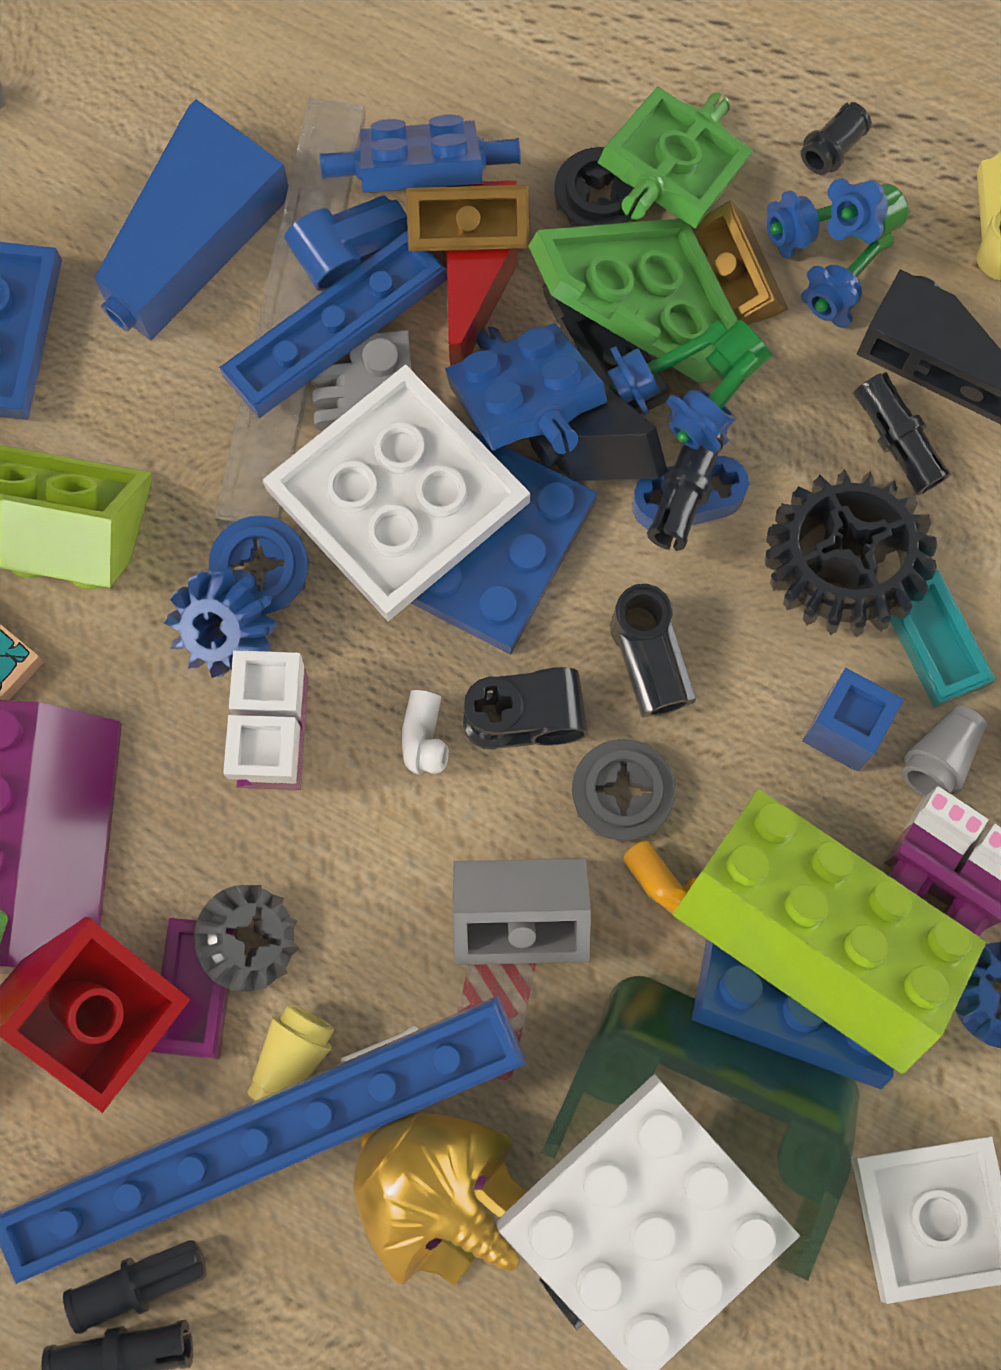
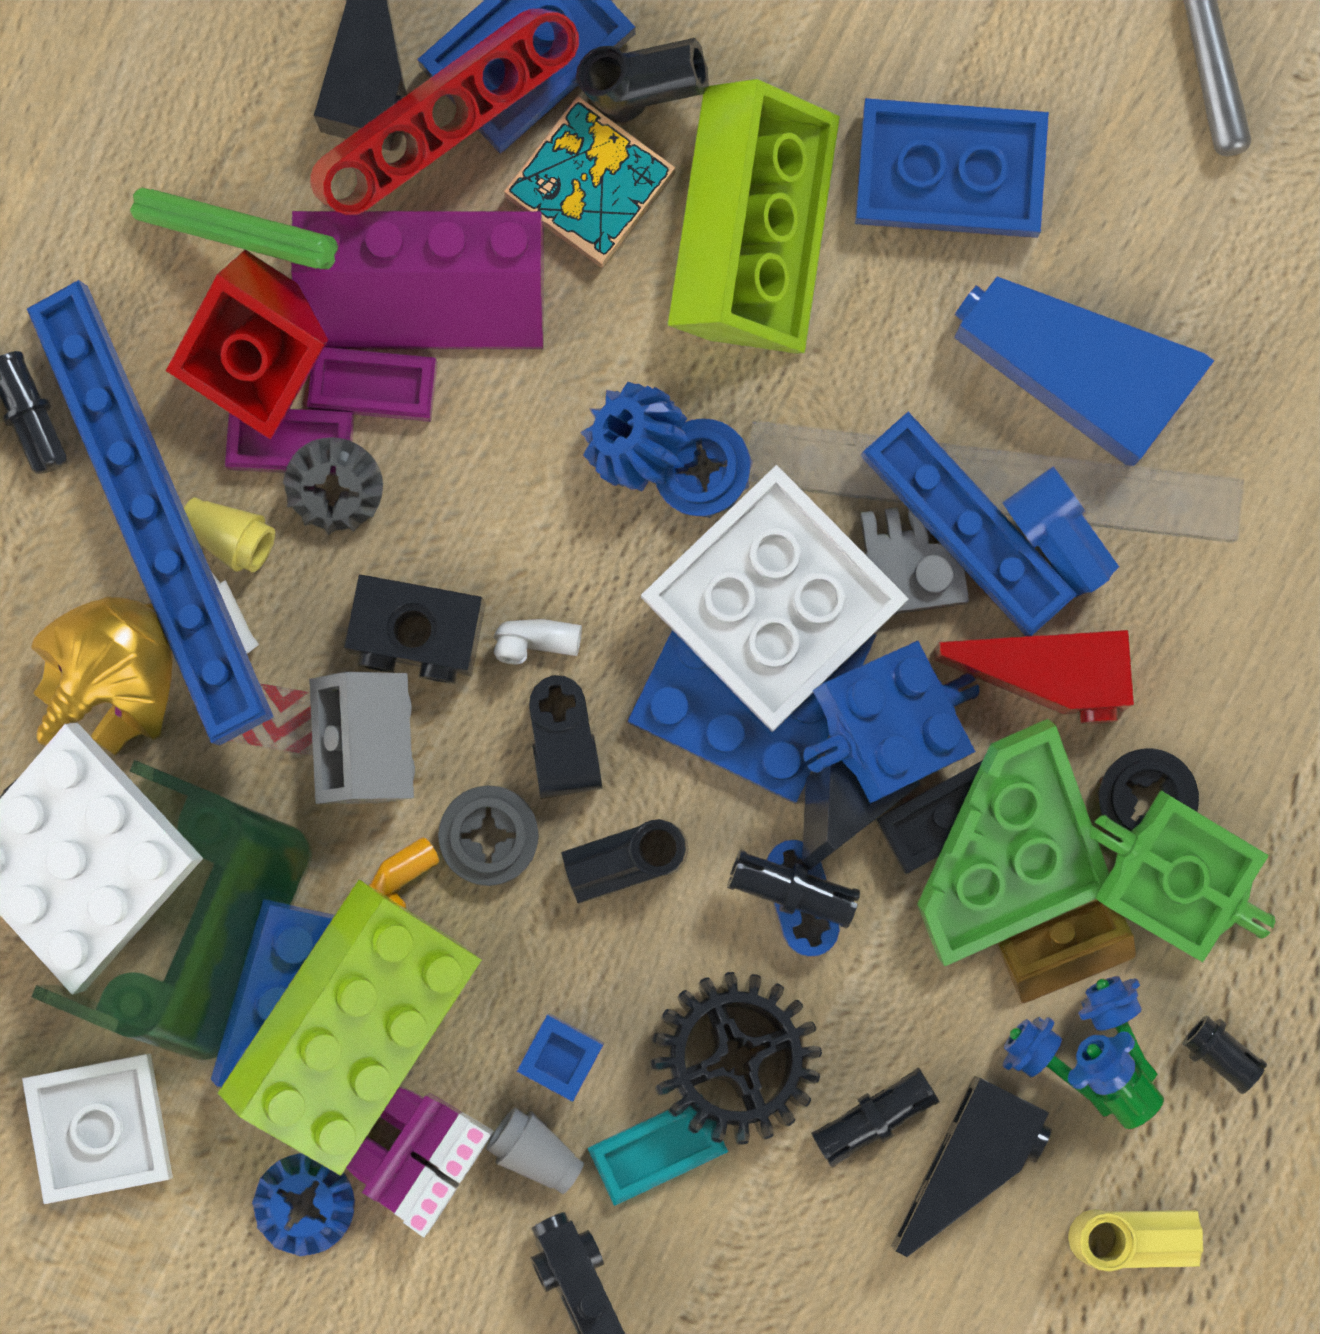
camera: 90 degrees right, 10 degrees up
(143, 891) = (373, 384): none -> magenta tile
(266, 720) = (516, 493): white hips -> none
(397, 816) = (385, 604): none -> black brick
(419, 155) = (1165, 602): blue plate -> none
(468, 218) = (1083, 654): pearl gold slope -> none
(697, 415) = (883, 910): plant -> none

